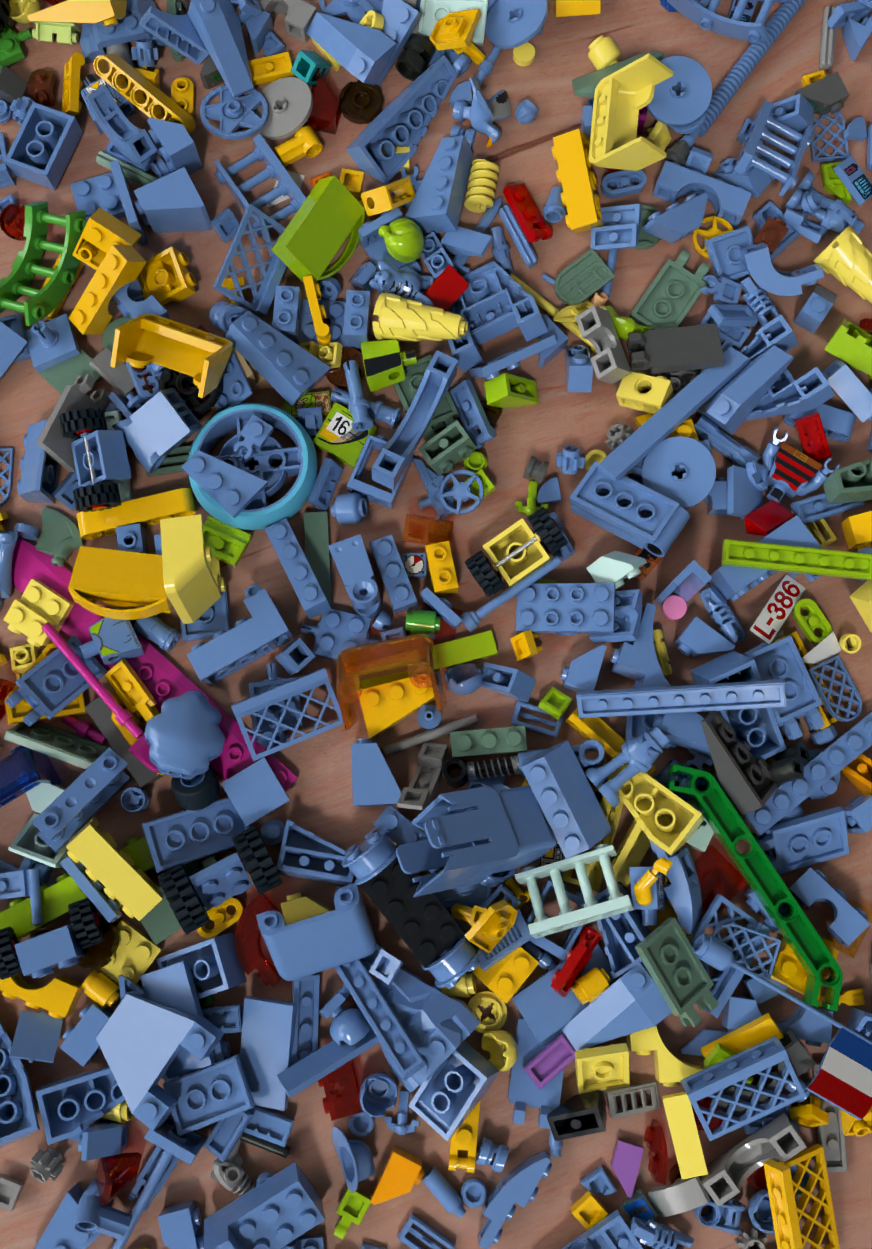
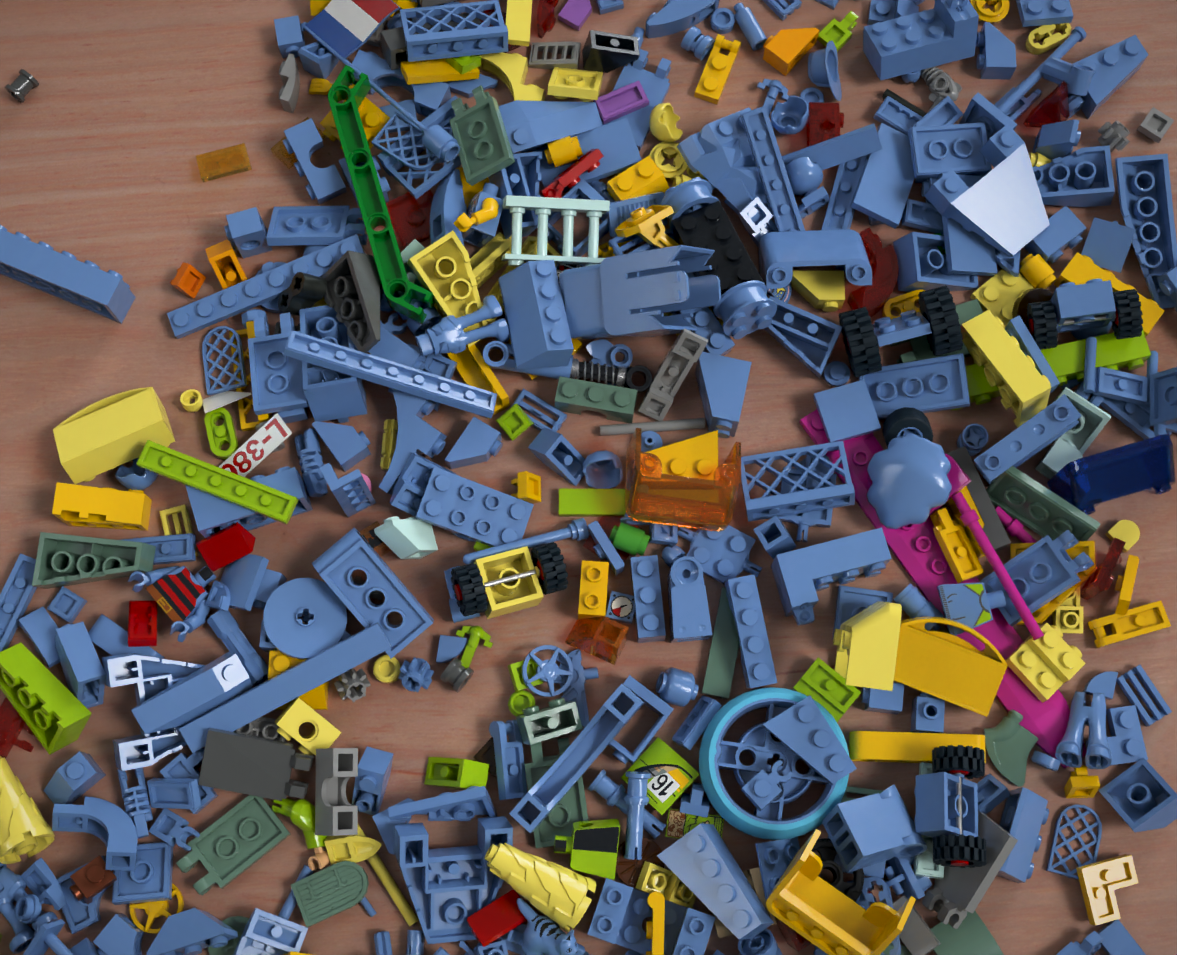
camera: 165 degrees left, 5 degrees down
(453, 1090) = (717, 97): medium blue slope -> none

